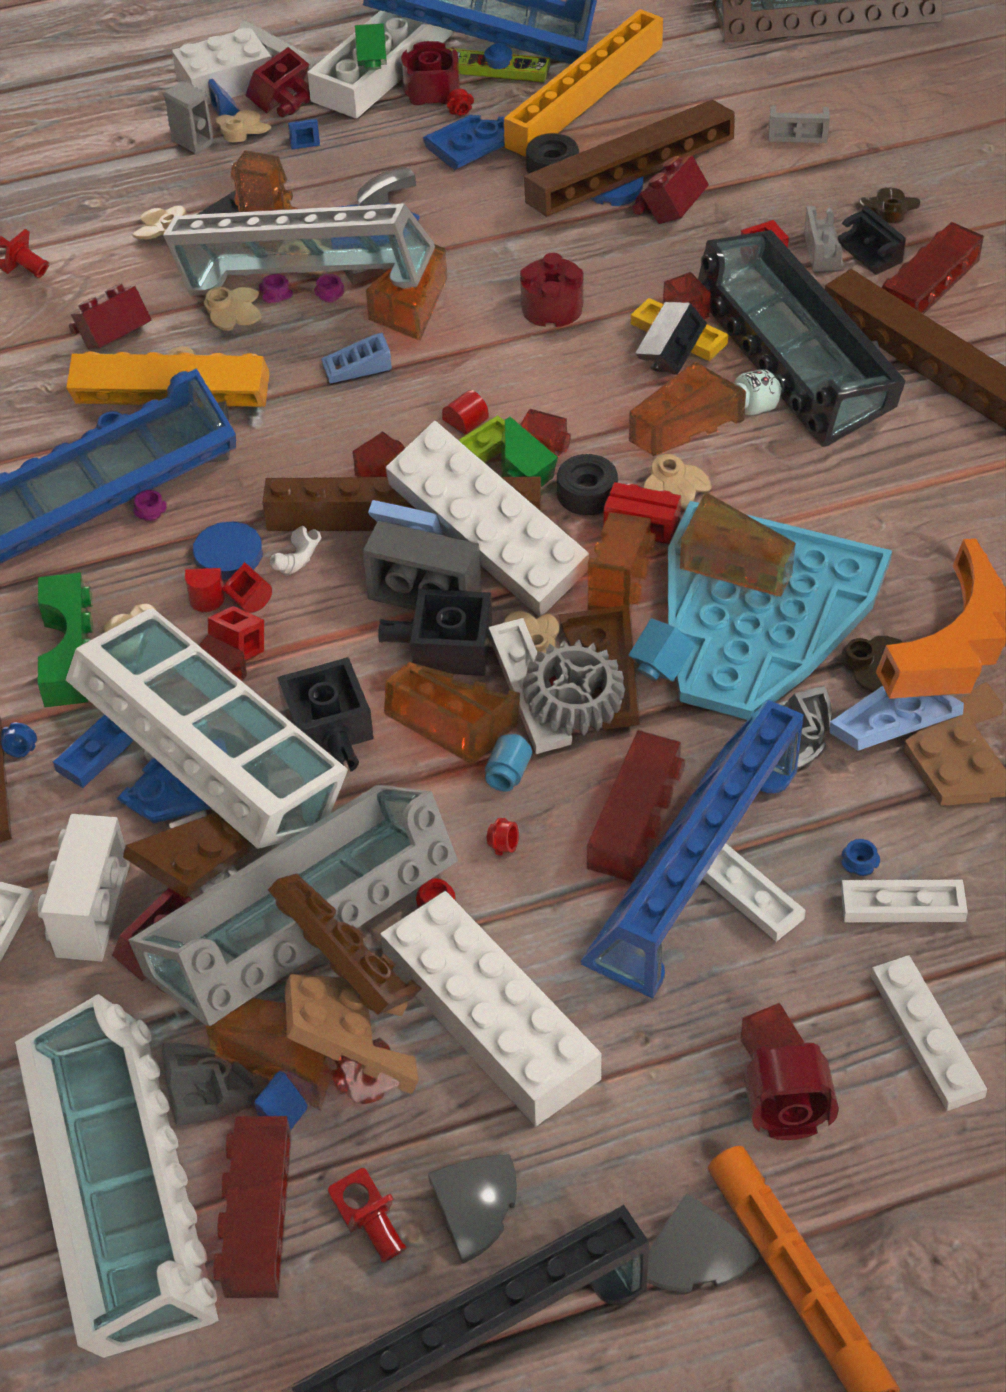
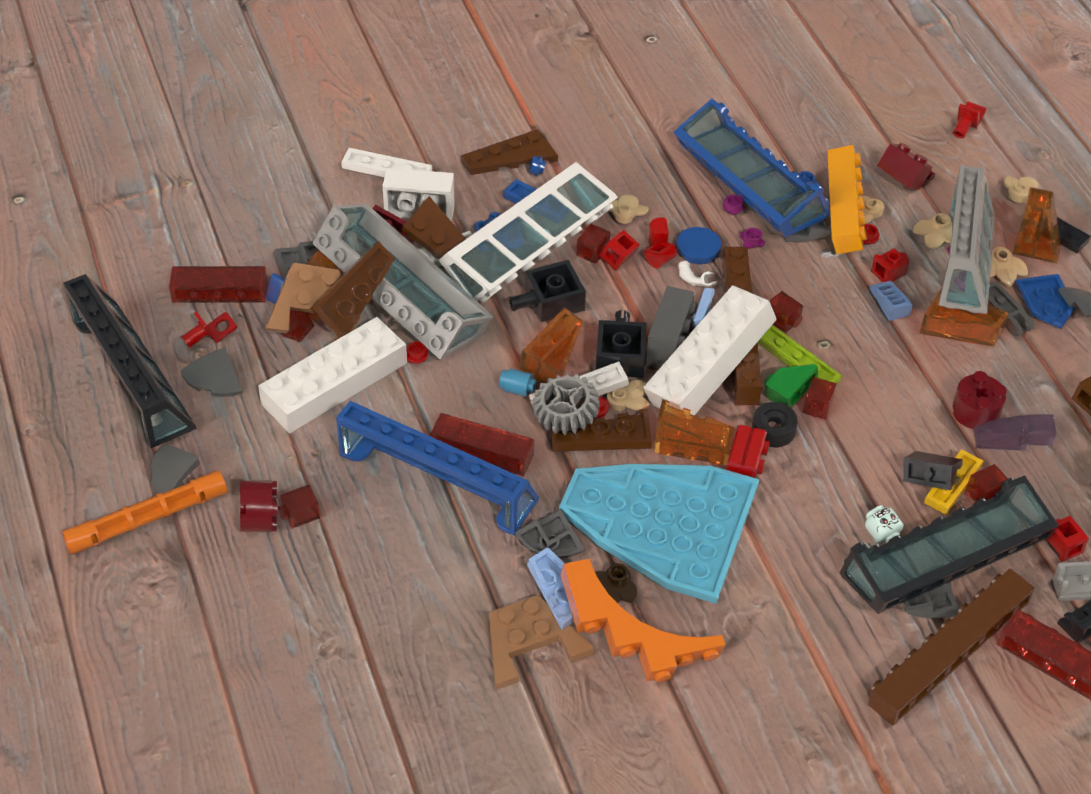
camera: 85 degrees right, 0 degrees up
(63, 607) = (638, 174): green arch -> none
(114, 1181) = (239, 227): window -> none
(223, 489) = (752, 238): none -> magenta plate
(294, 345) = (893, 262): none -> red brick
(466, 412) = (842, 358): red brick -> none
(503, 836) = (458, 386): red plate -> none
(600, 267) = (1016, 432): none -> clear purple slope
(661, 651) = (605, 453): dark azure brick -> none
(682, 480) = (782, 478): tan plate -> none
(685, 407) = (856, 477): clear orange wedge -> none
(736, 548) = (700, 492): clear orange wedge -> none
(753, 894) = (414, 501): white plate -> none
(862, 850) = (436, 558): blue plate -> none
(903, 901) = (402, 583): white plate -> none
(928, 1033) = (305, 591): white plate -> none

